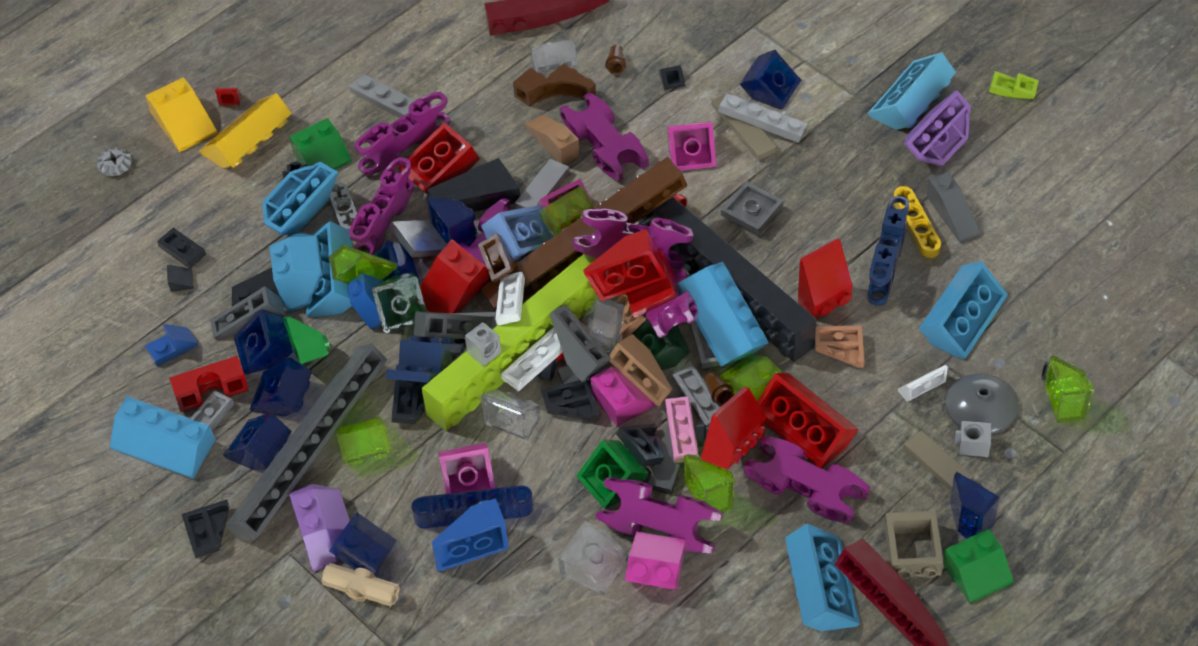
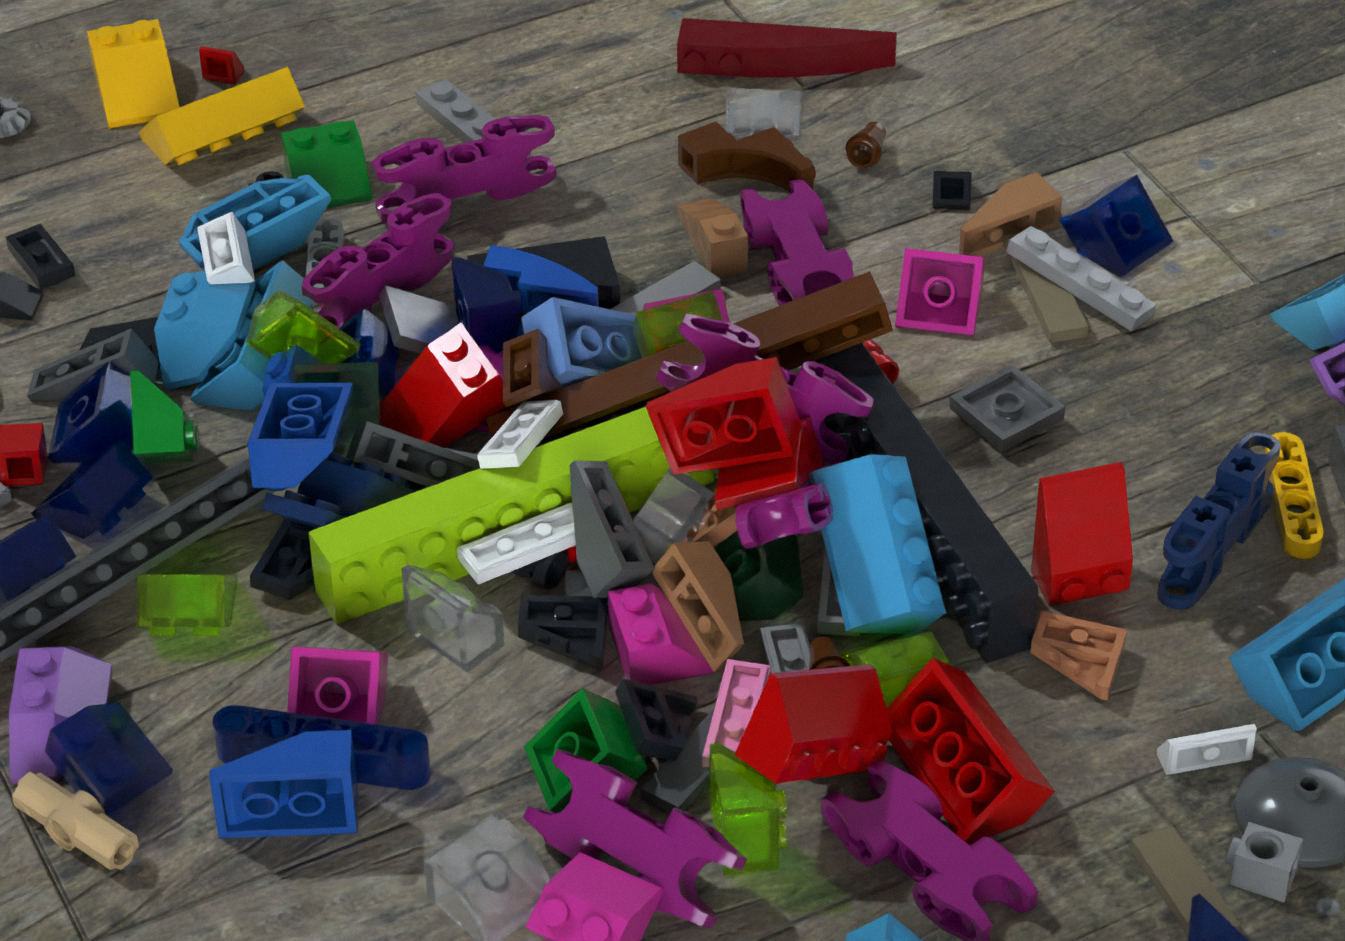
camera: 15 degrees right, 10 degrees down
(295, 223) = (225, 251): none -> white slope
(392, 329) = (295, 431): none -> blue slope
(440, 159) = (510, 215): red slope -> none
(480, 198) = (539, 278): none -> blue slope
(483, 344) = (436, 484): light grey brick -> none
(715, 81) = (1010, 211): none -> medium nougat slope

